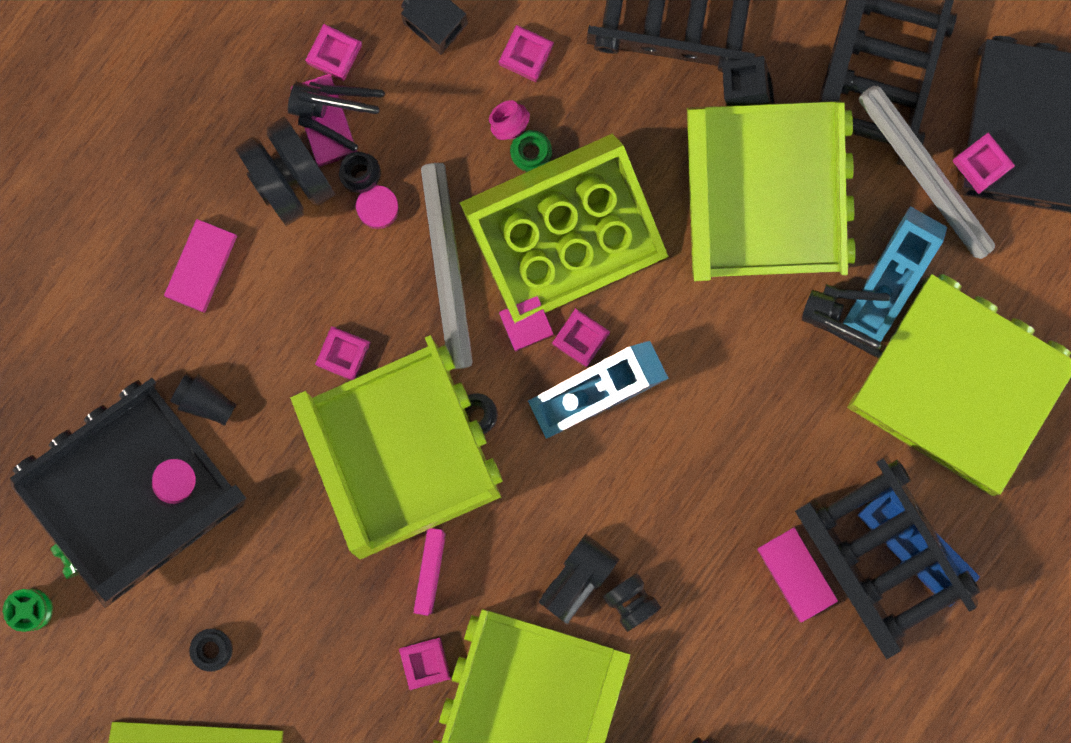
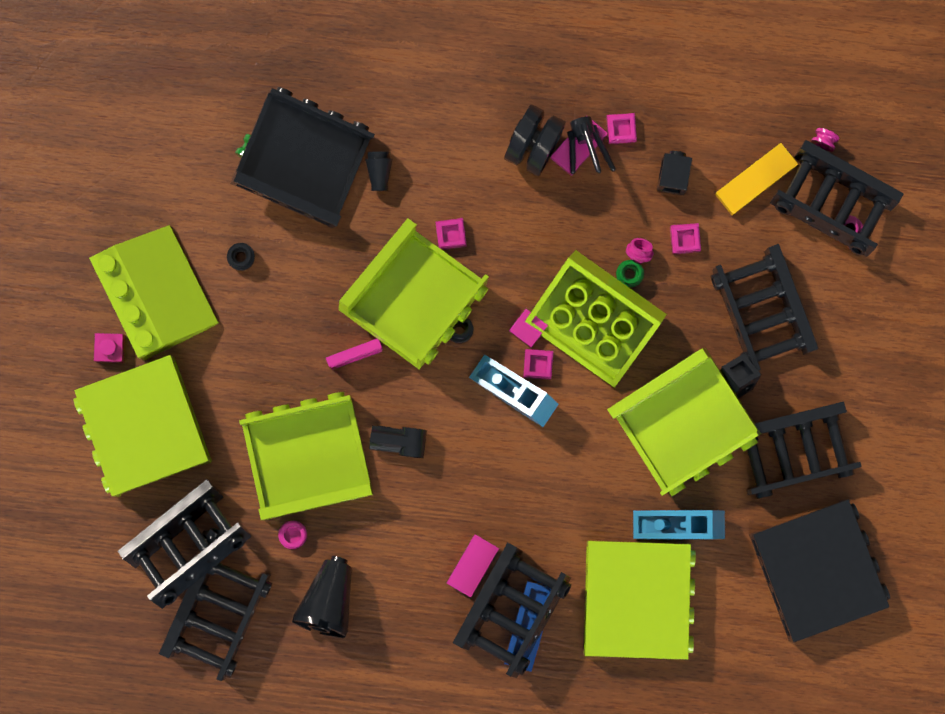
camera: 55 degrees right, 0 degrees up
(19, 610) = (203, 136): green wheel -> none
(173, 481) = (323, 180): dark pink tile -> none
(200, 266) = (454, 124): dark pink tile -> none
(355, 163) = (560, 176): black plate -> none
(377, 207) = (546, 204): dark pink tile -> none
(425, 663) = (301, 381): dark pink tile -> none
(446, 264) = (536, 263): light grey axle -> none
(638, 609) = (399, 484): black wheel -> none
(825, 312) = (634, 496): black plant -> none
(926, 172) = (748, 508): light grey axle -> none
(983, 163) = (773, 538): dark pink tile -> none

